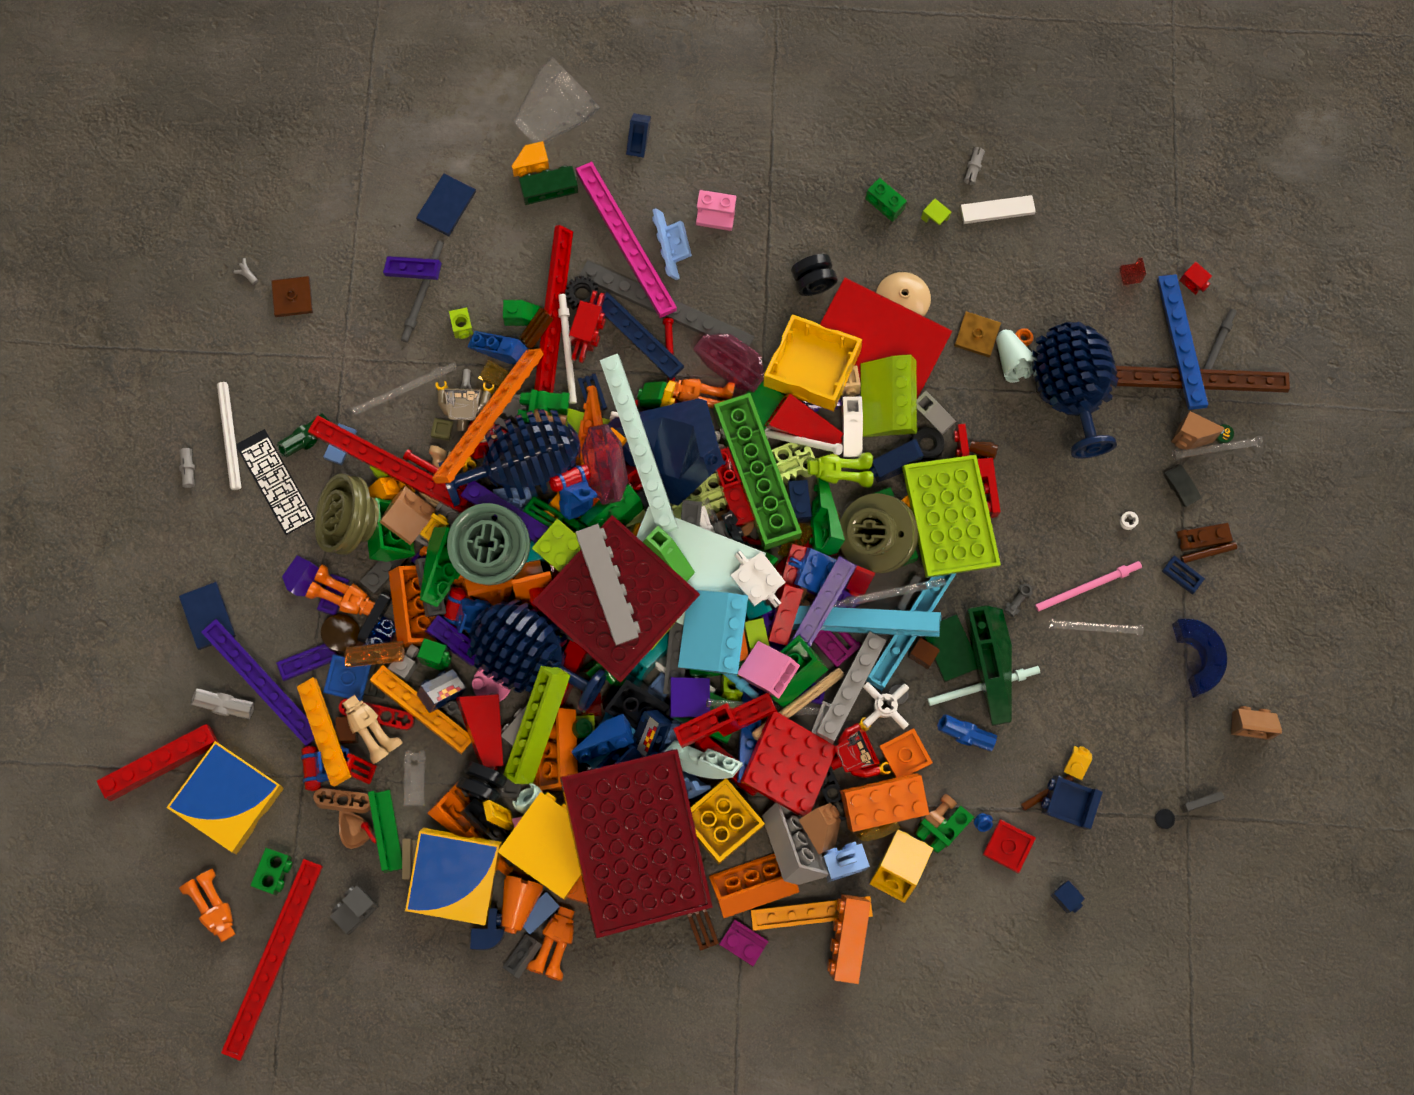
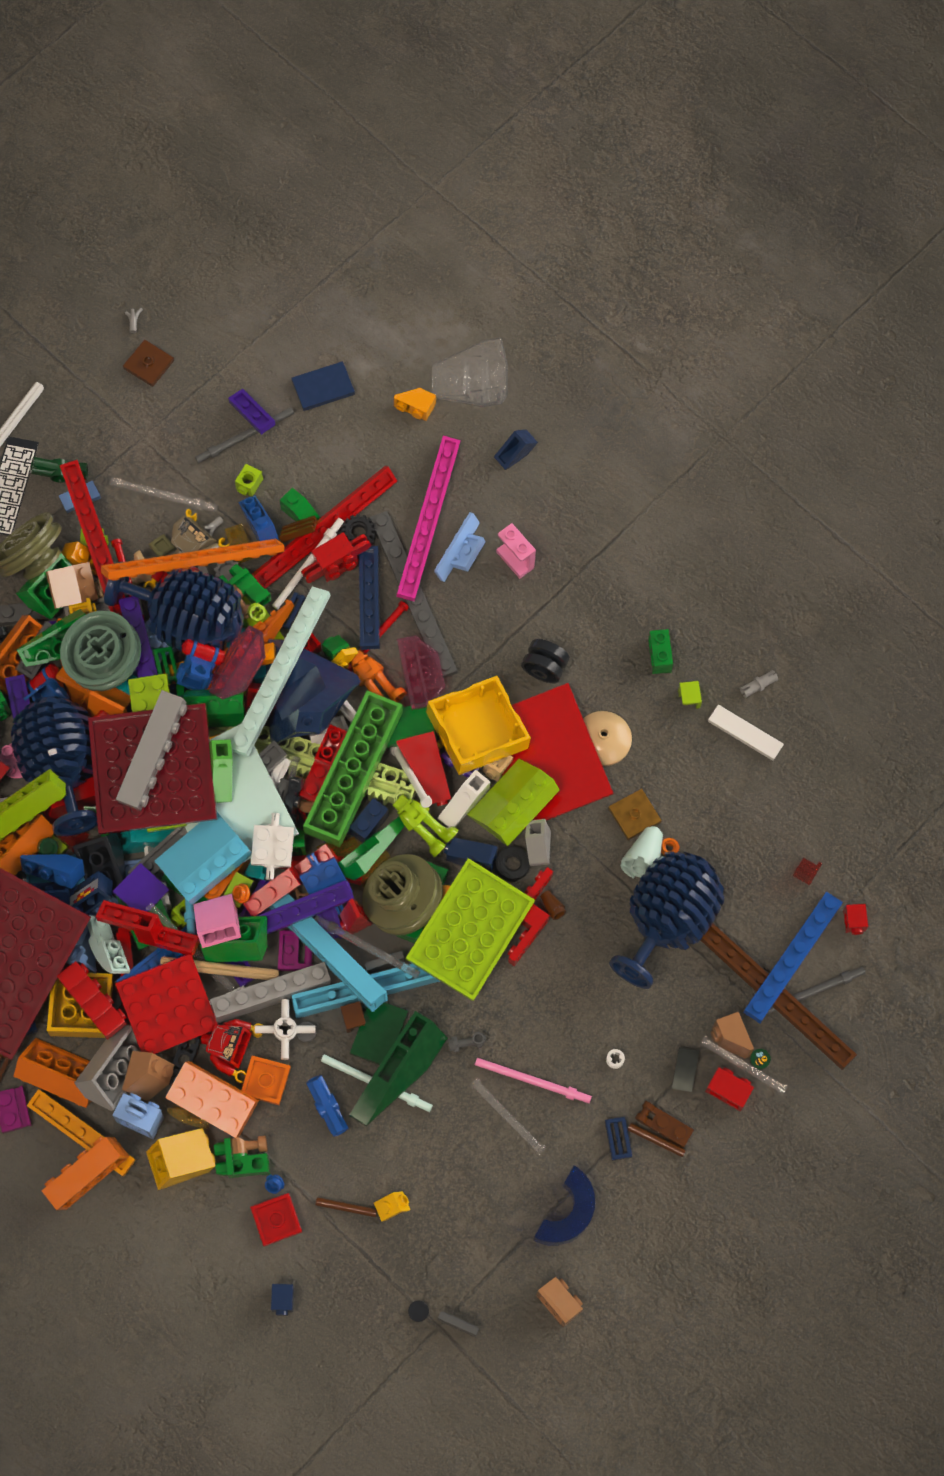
camera: 45 degrees right, 5 degrees down
(548, 185) = (411, 431): dark green brick -> none
(577, 415) = (261, 615): none -> lime bush
(733, 809) = (92, 1000): none -> red brick
(762, 637) = (241, 893): none -> orange plate
(1071, 802) = (354, 1228): dark blue panel -> none
(1225, 472) = (730, 1088): none -> red brick

